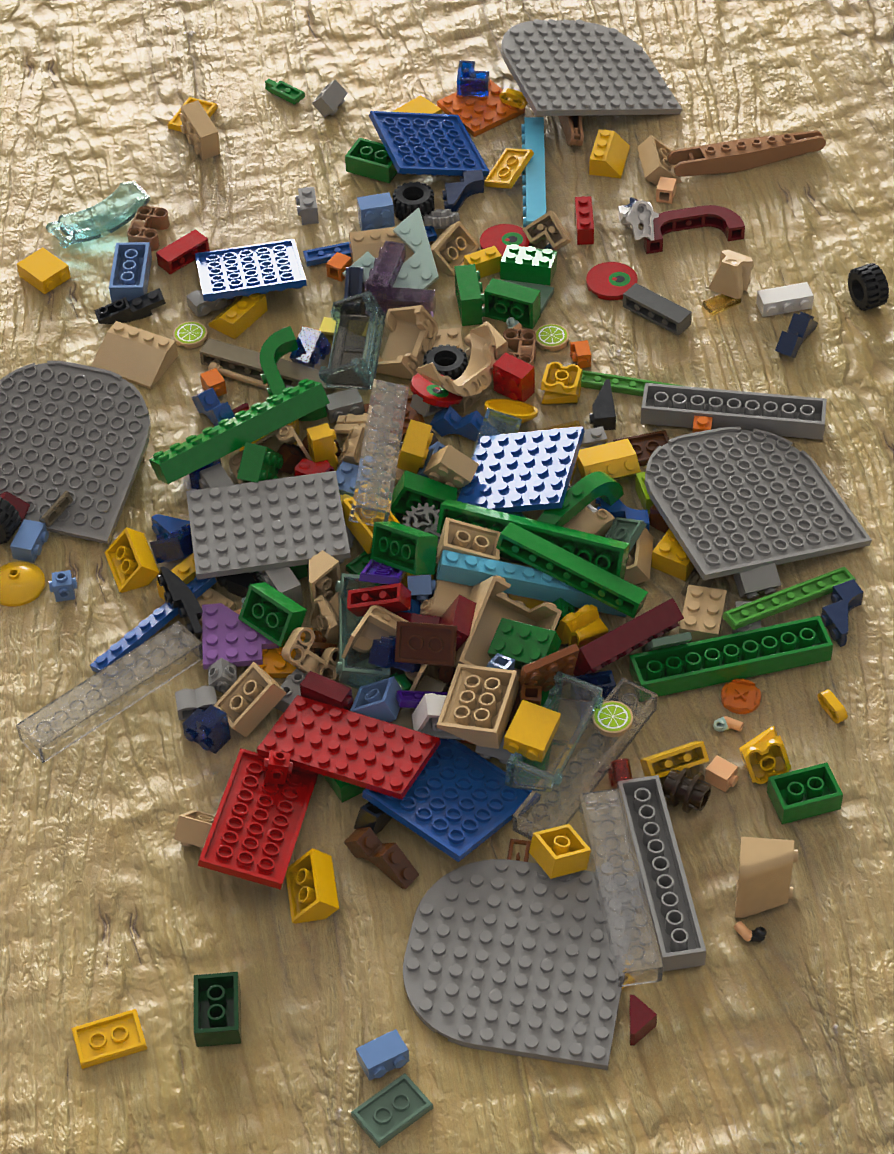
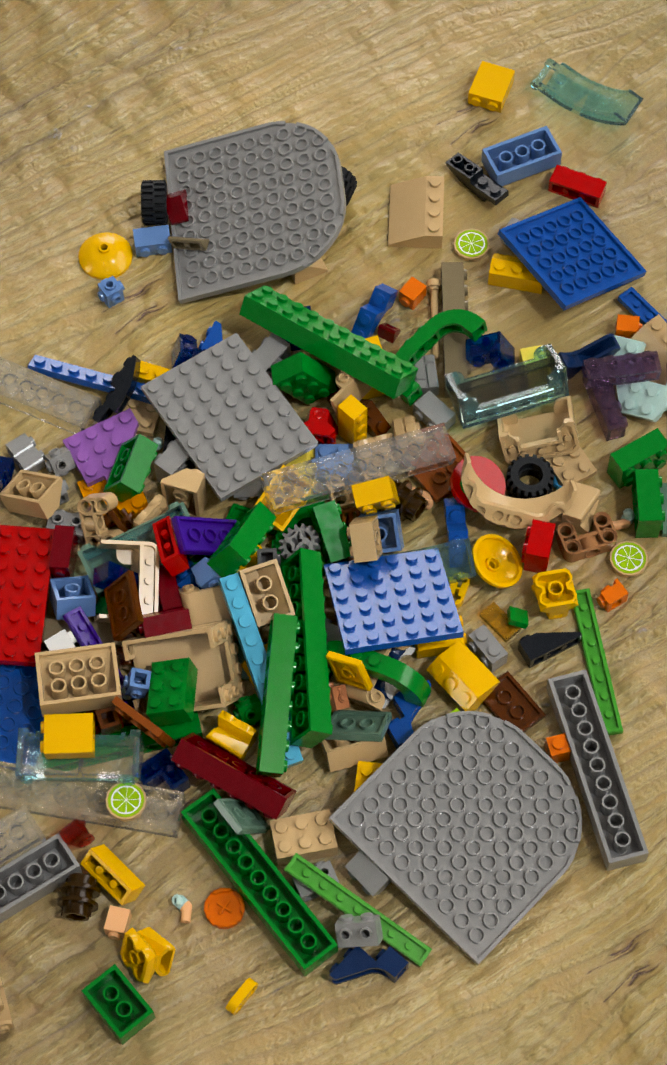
camera: 65 degrees right, 15 degrees up
(131, 561) = (164, 330): yellow slope -> none
(144, 225) = (594, 135): medium nougat beam -> none
(568, 417) = (517, 617): none -> green tile
(574, 514) = (349, 671): none -> yellow tile
(812, 597) = (358, 930): none -> light grey brick

